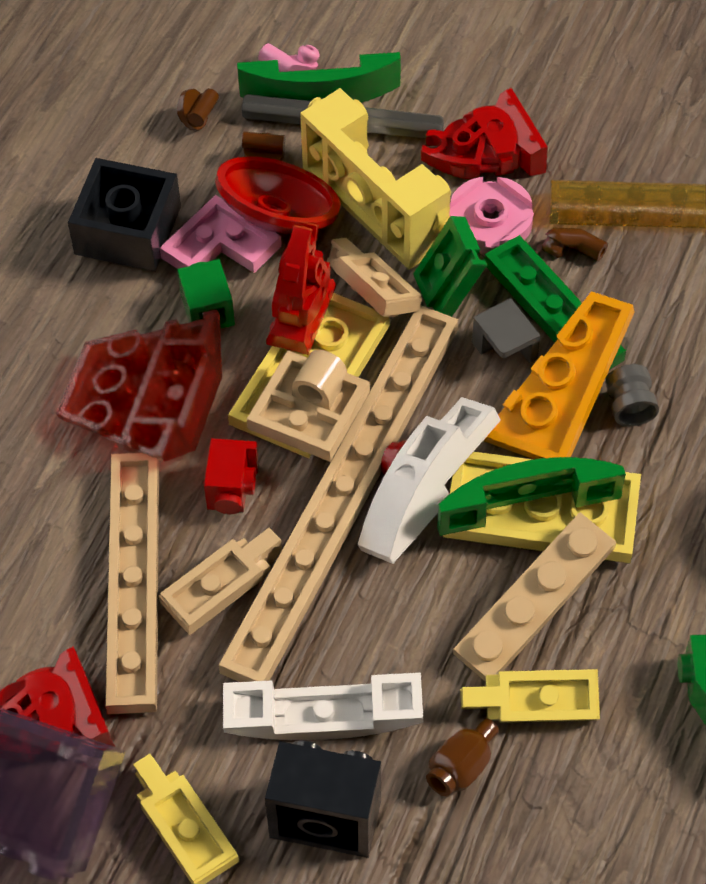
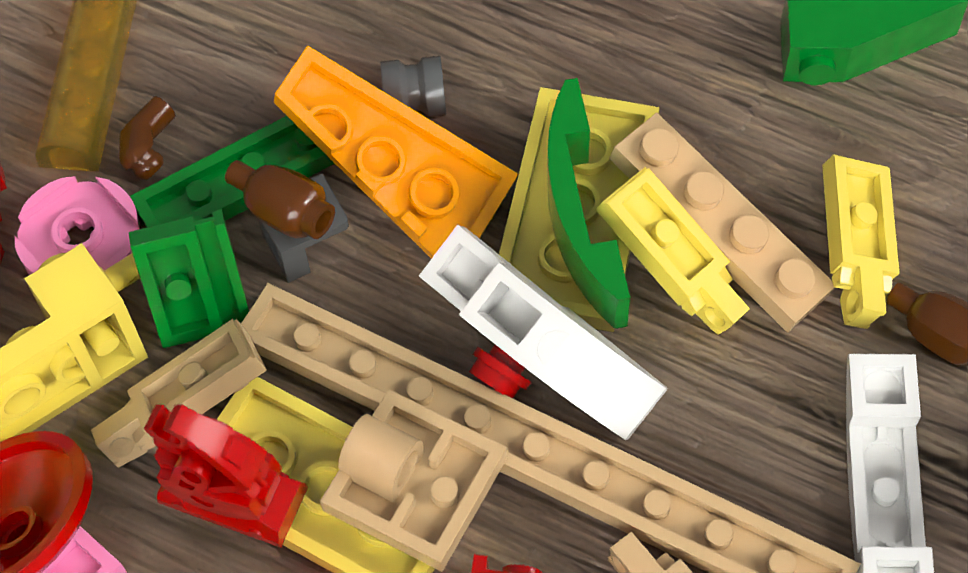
camera: 85 degrees left, 5 degrees up
(503, 559) = (674, 250): none -> light yellow hinge
(505, 305) = (283, 199): none -> reddish brown plant

